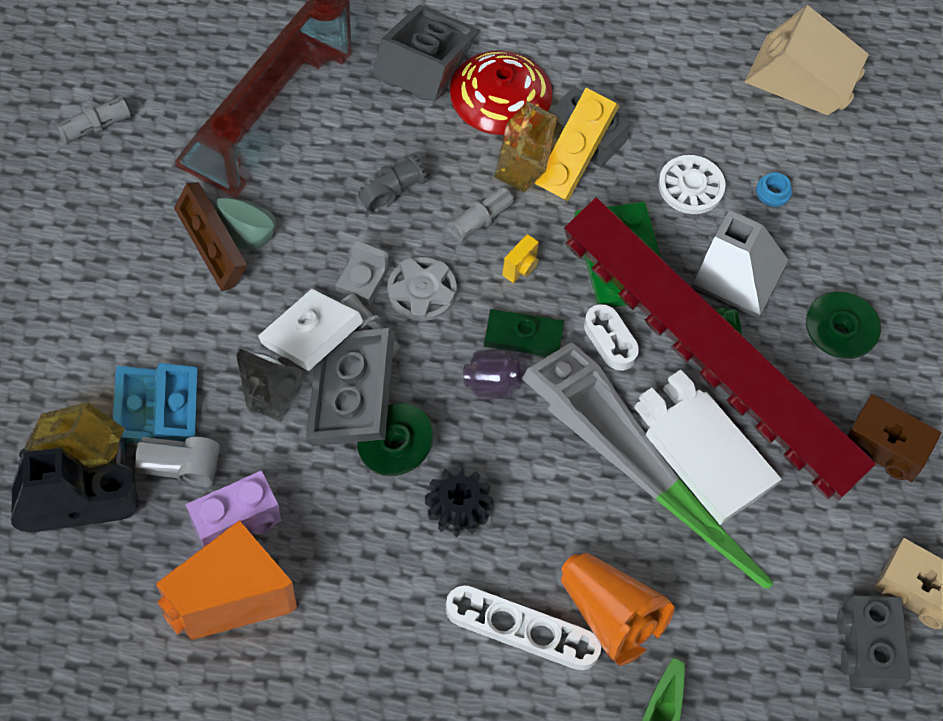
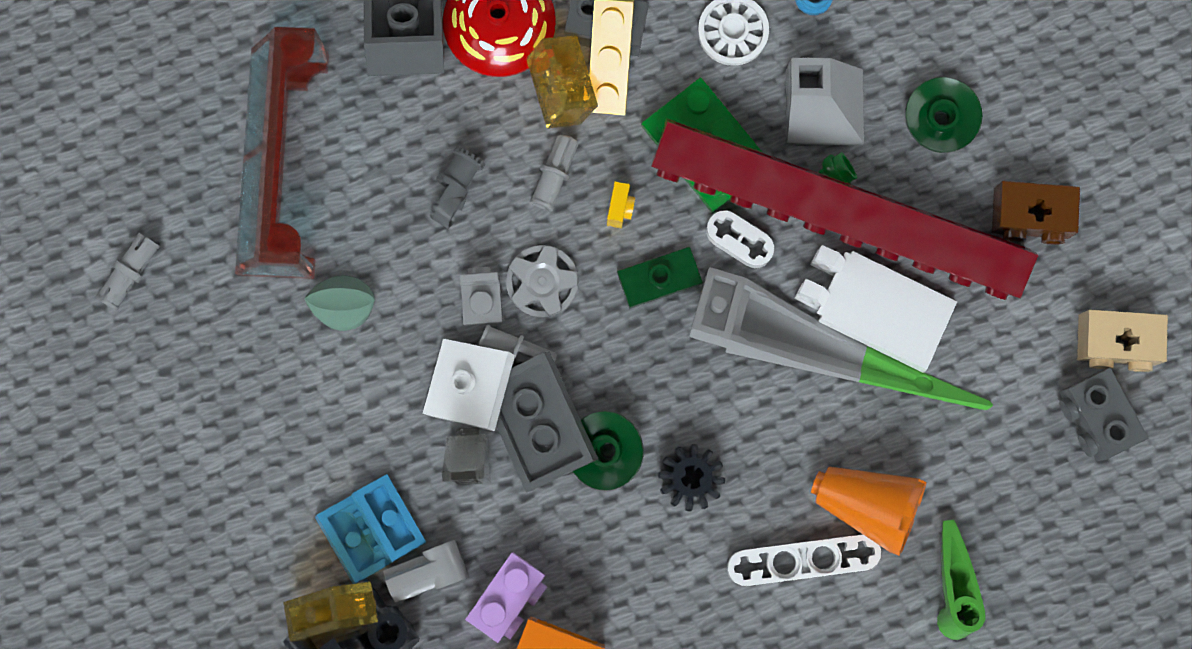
camera: 25 degrees left, 20 degrees up
(210, 236) = (319, 337): reddish brown plate -> none
(493, 374) = (656, 338): clear purple head -> none

